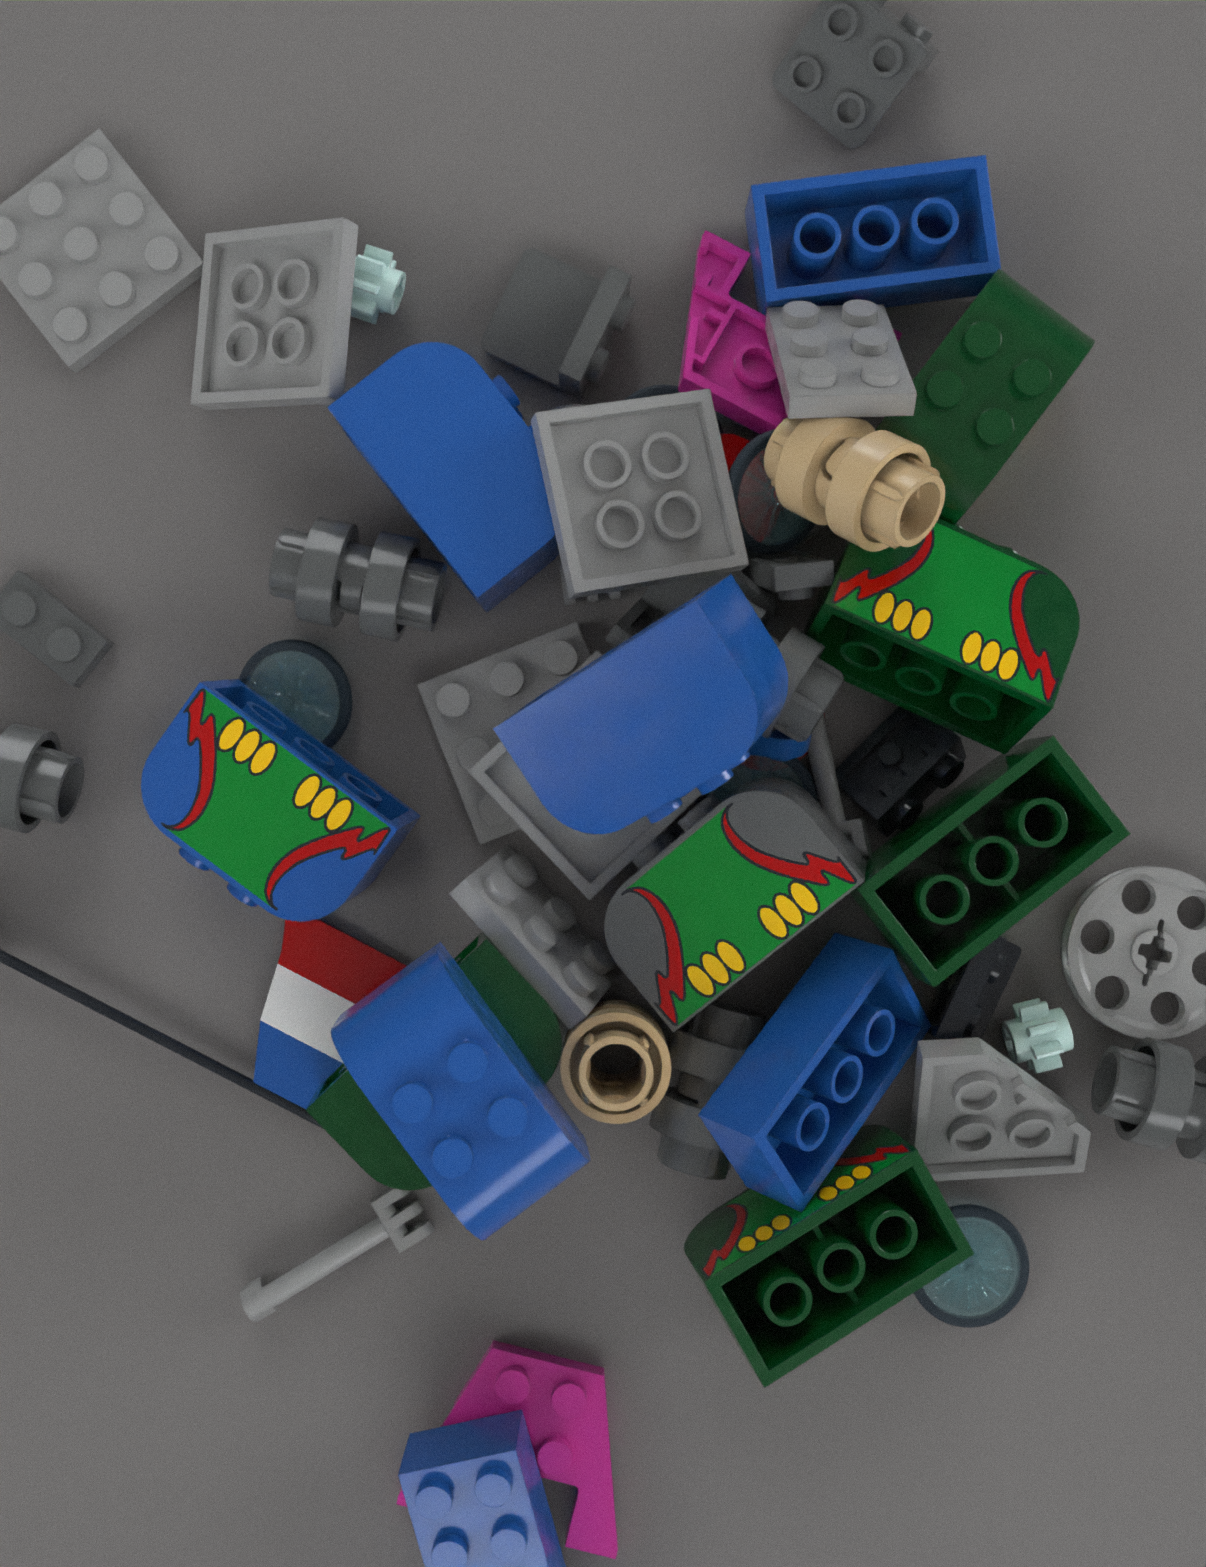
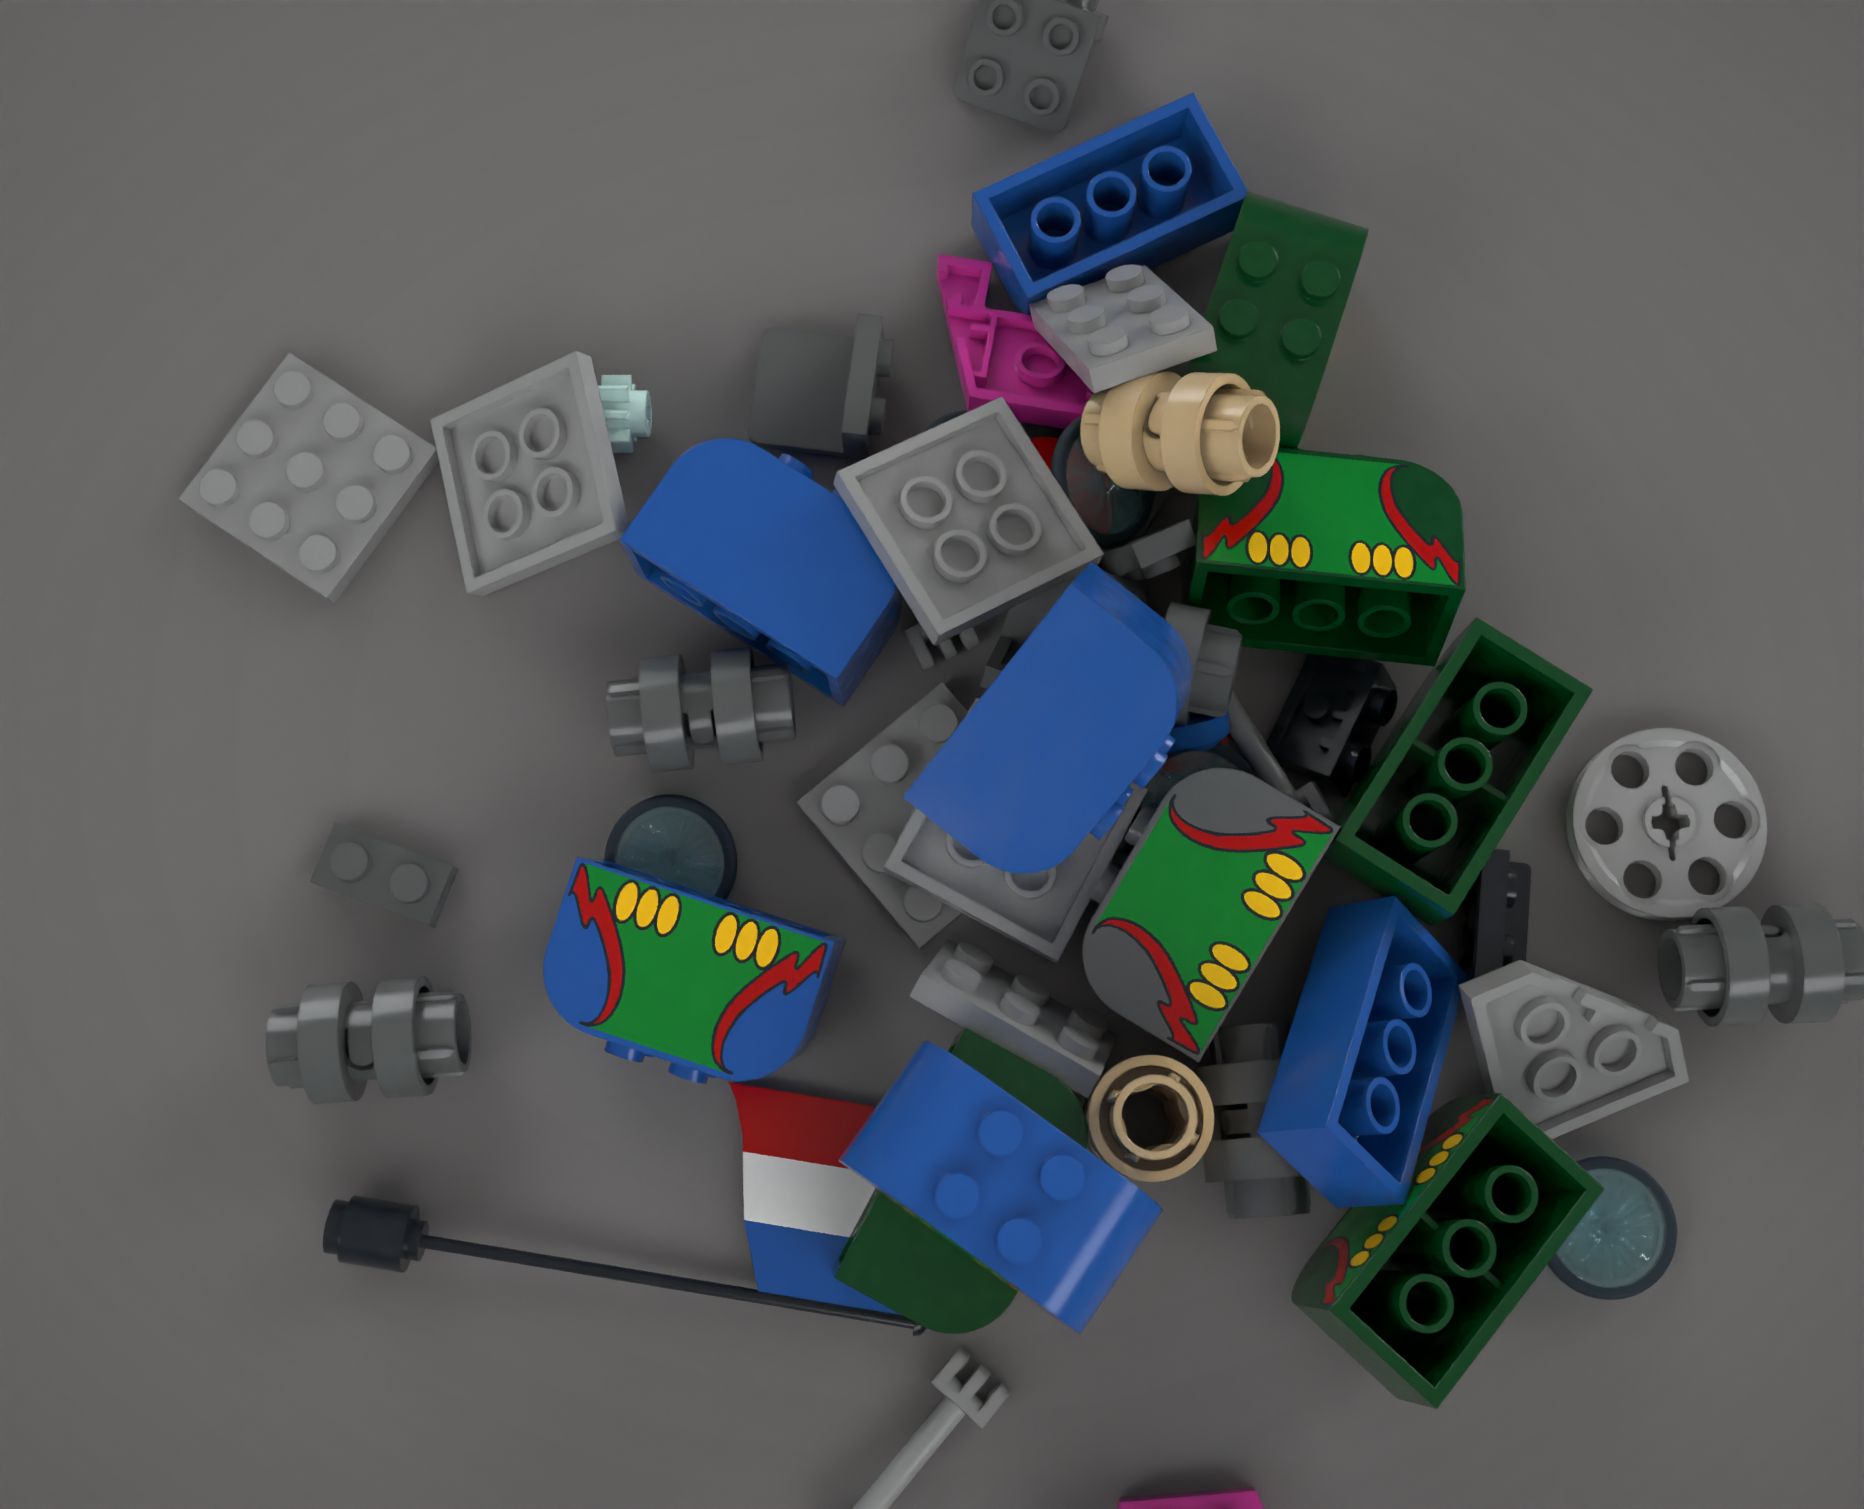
camera: 15 degrees left, 10 degrees down
(1037, 1035) = (1583, 948): light aqua gear -> none

